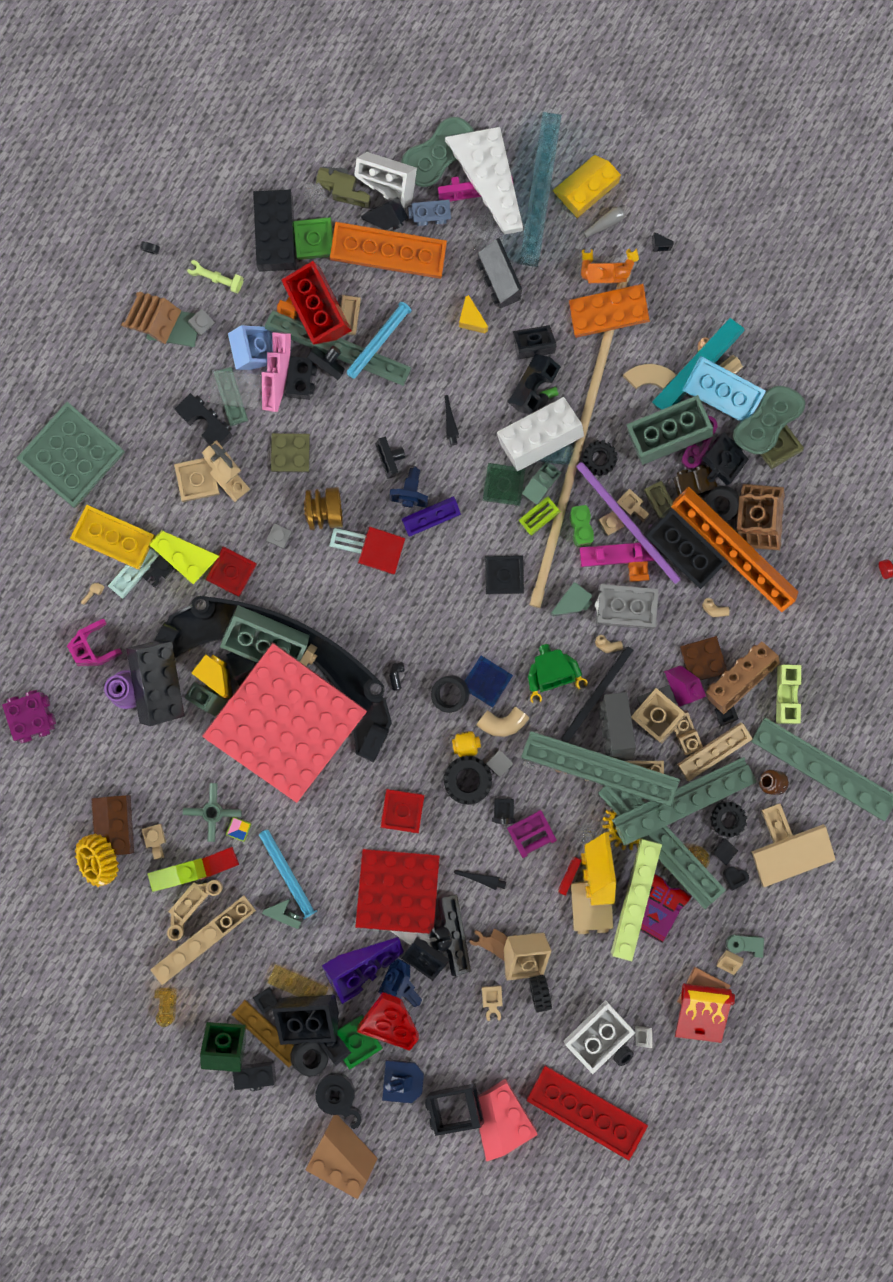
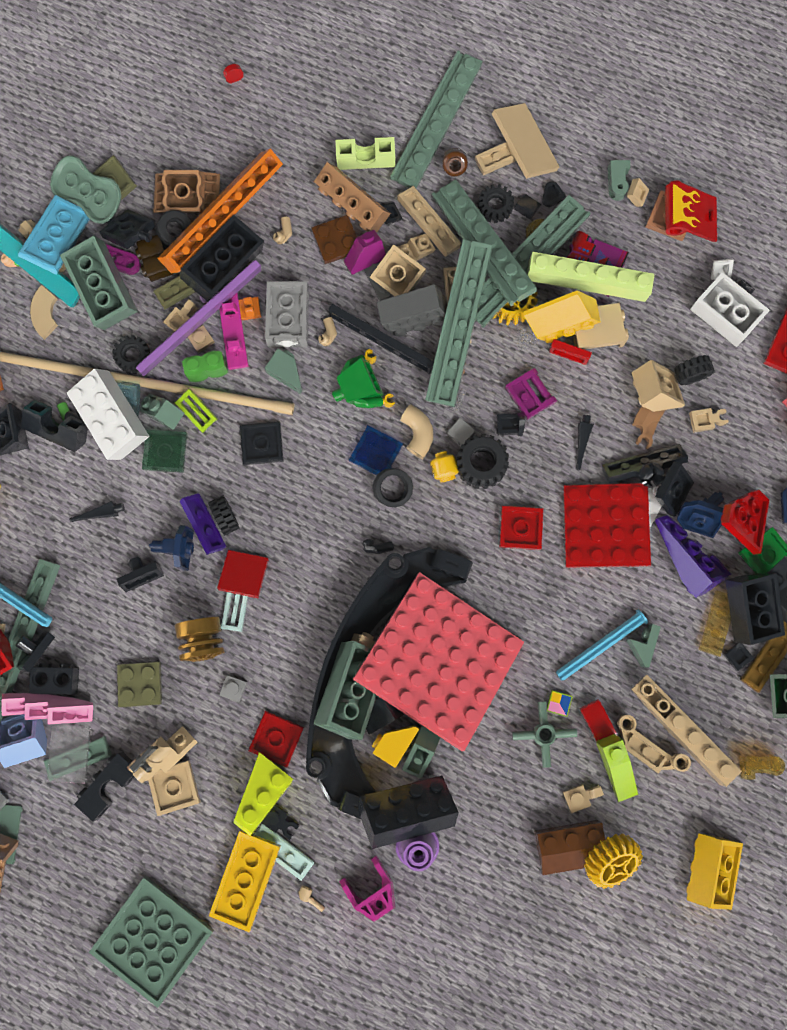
camera: 90 degrees left, 5 degrees down
(29, 716) = (458, 959): magenta brick -> none
(79, 951) = (714, 872): none -> yellow slope
(436, 536) = (223, 515): none -> black tyre

